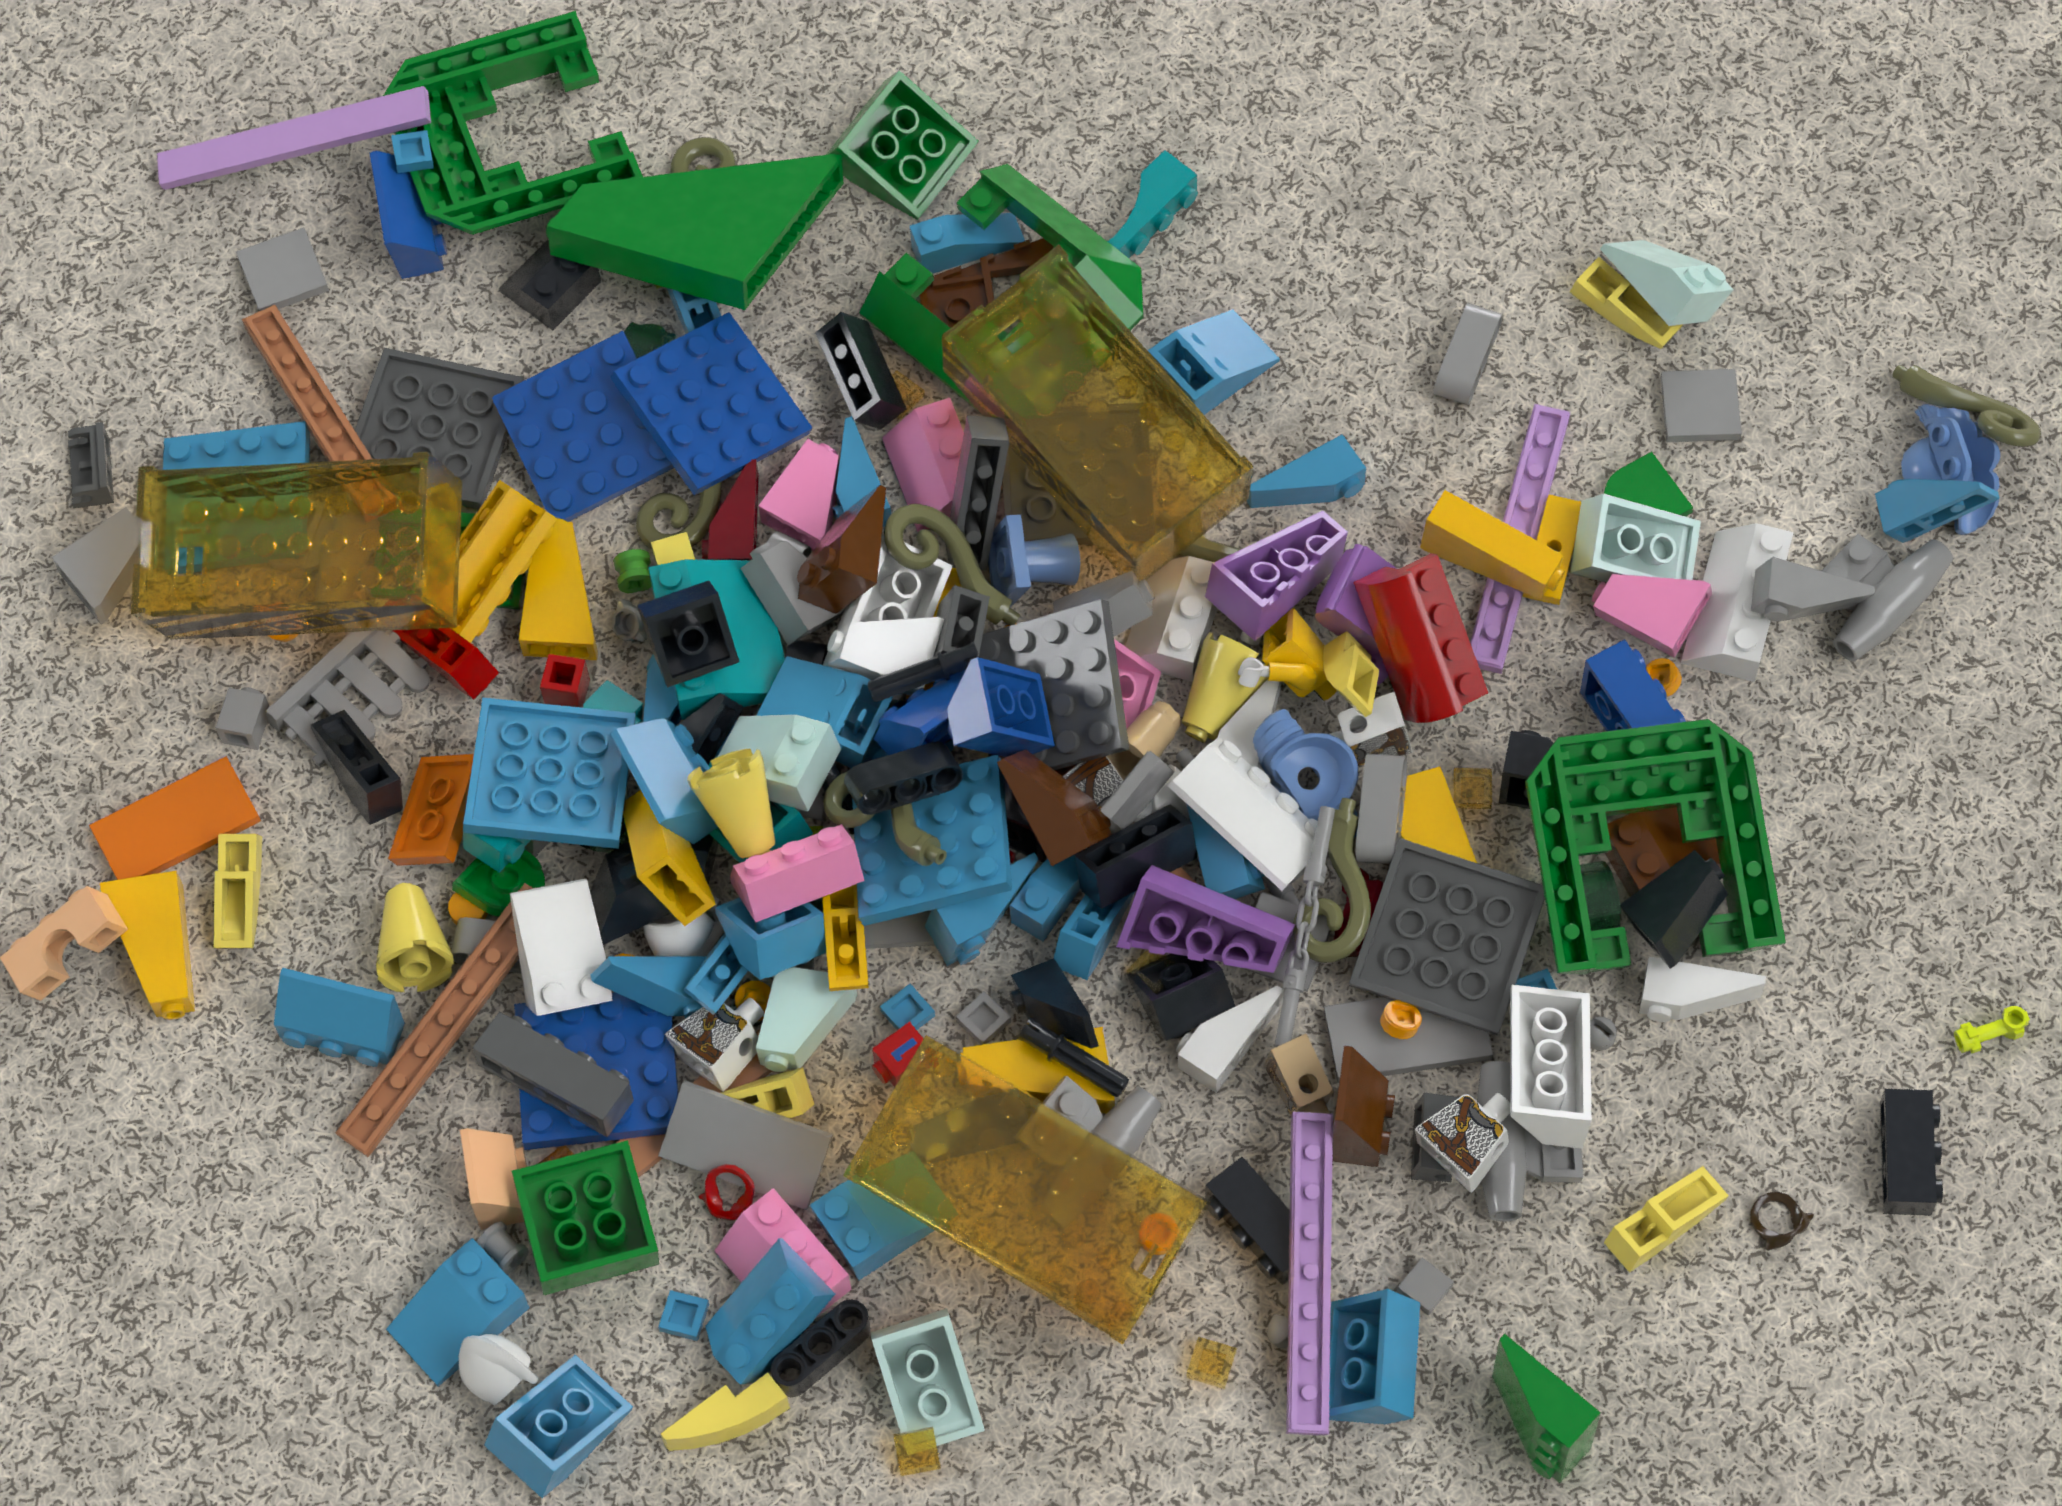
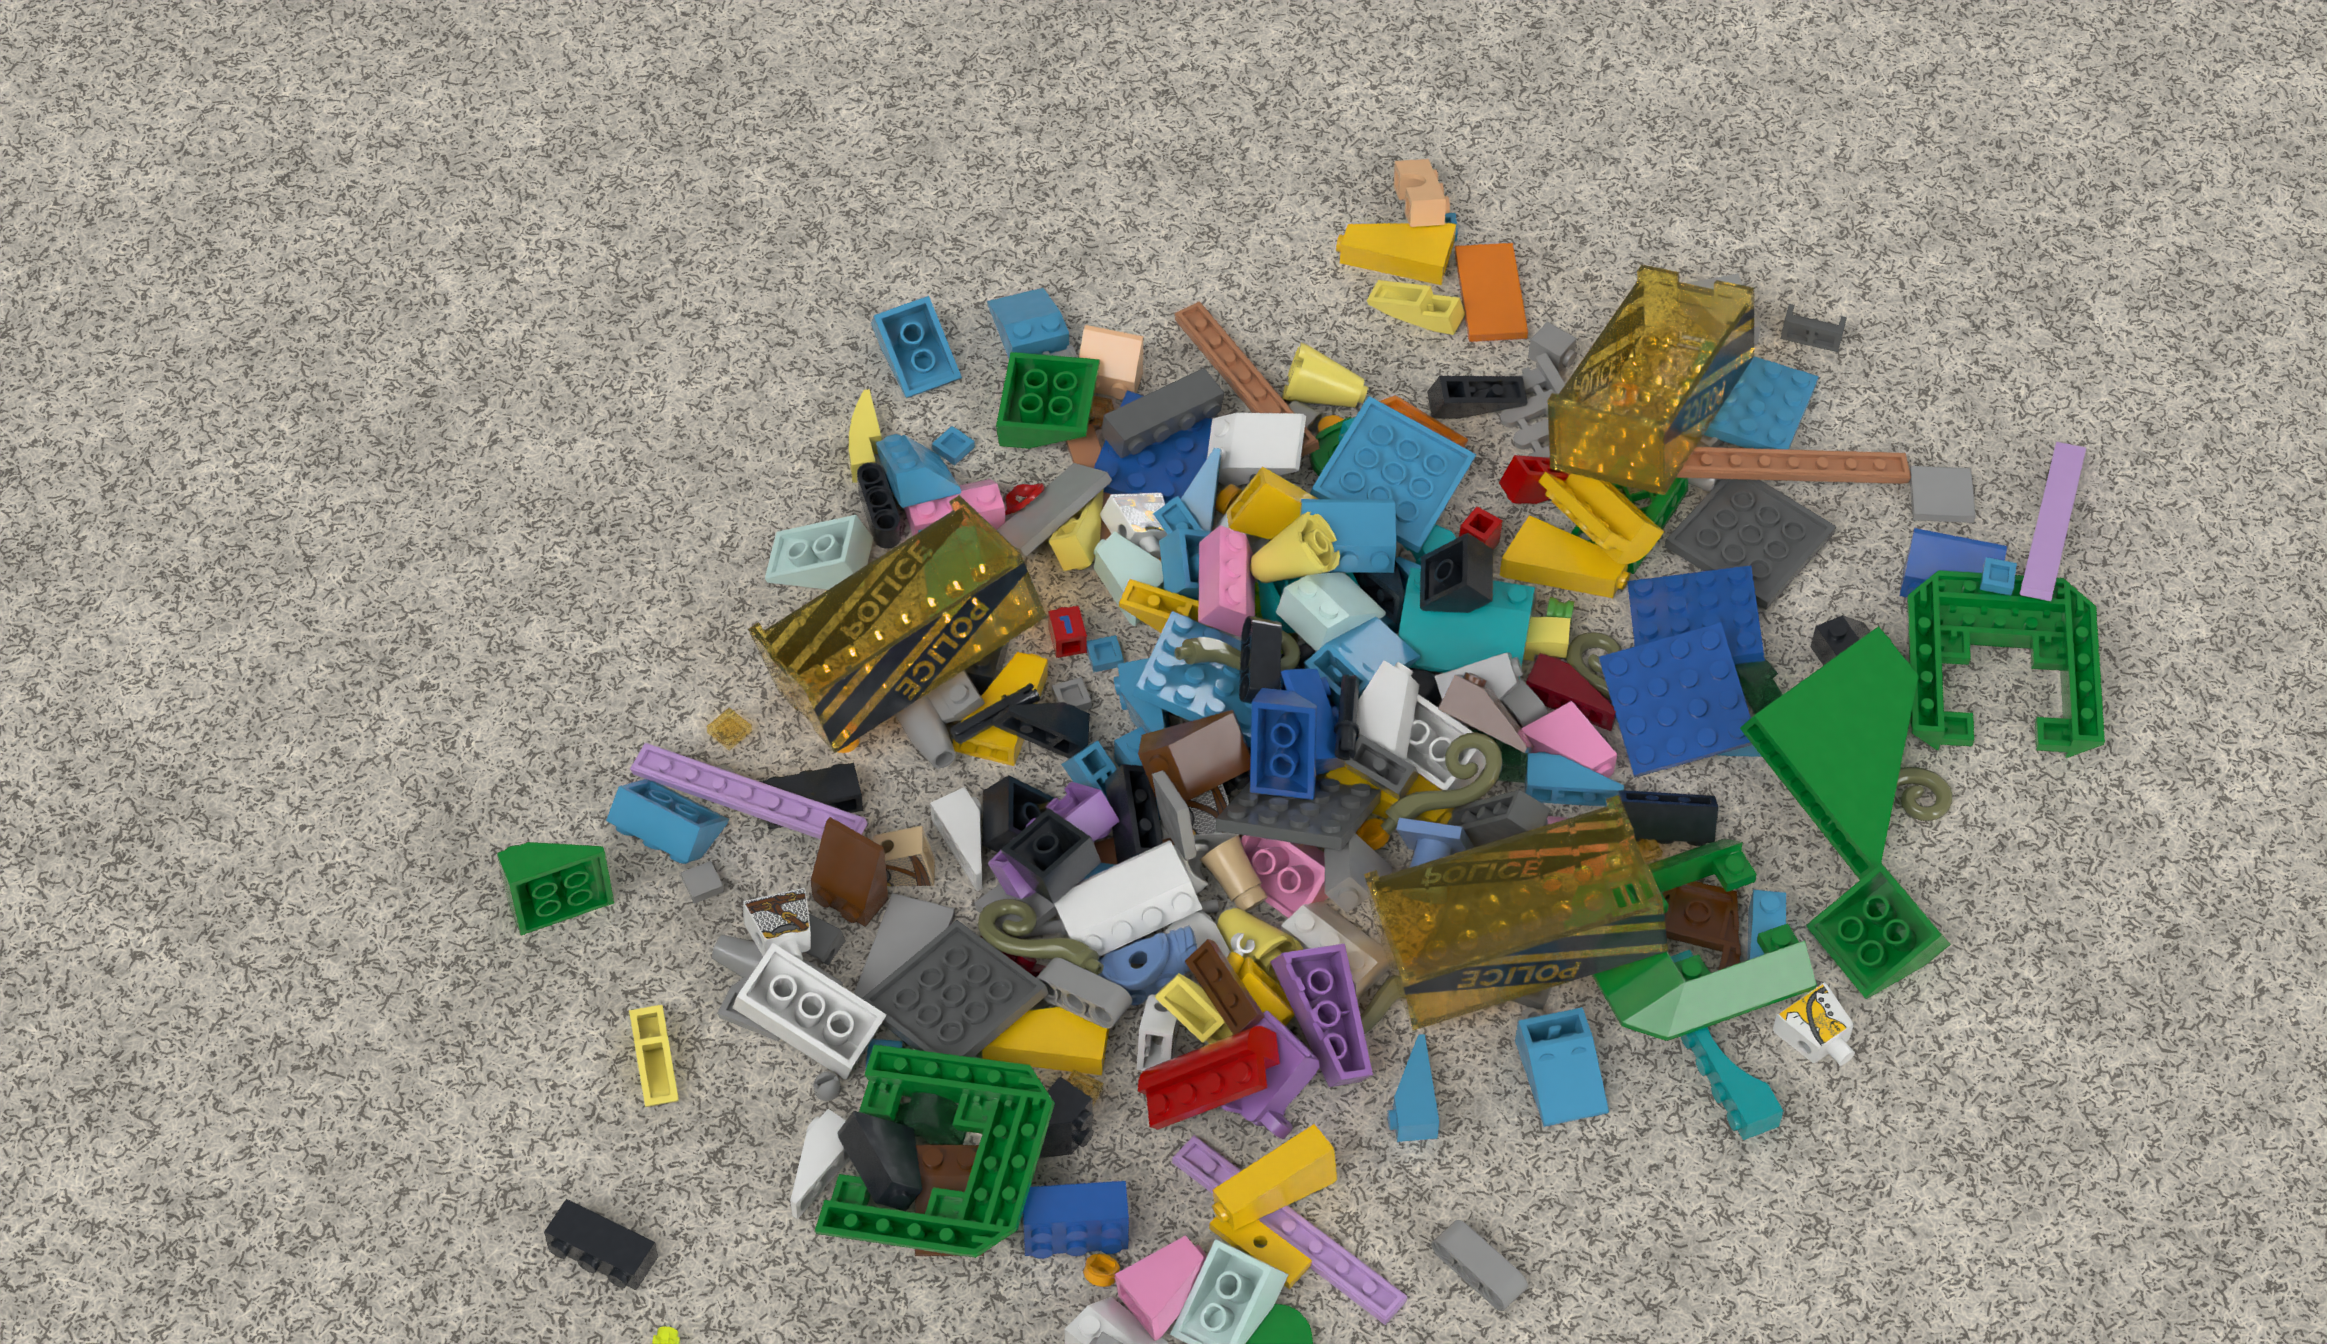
camera: 110 degrees right, 10 degrees down
(337, 1018) = (1281, 323): dark azure slope -> none
(493, 1366) = (973, 318): white piece -> none
(916, 1451) = (773, 533): clear yellow tile -> none
(1044, 157) = (1817, 1026): none -> torso
(1250, 890) = (1052, 855): none -> black slope
(1314, 877) = (1046, 918): light grey piece -> none
(1322, 656) = (1224, 987): none -> reddish brown plate
(1400, 1020) = (908, 943): light orange tile -> none
(1798, 1218) = (597, 1126): dark brown piece -> none

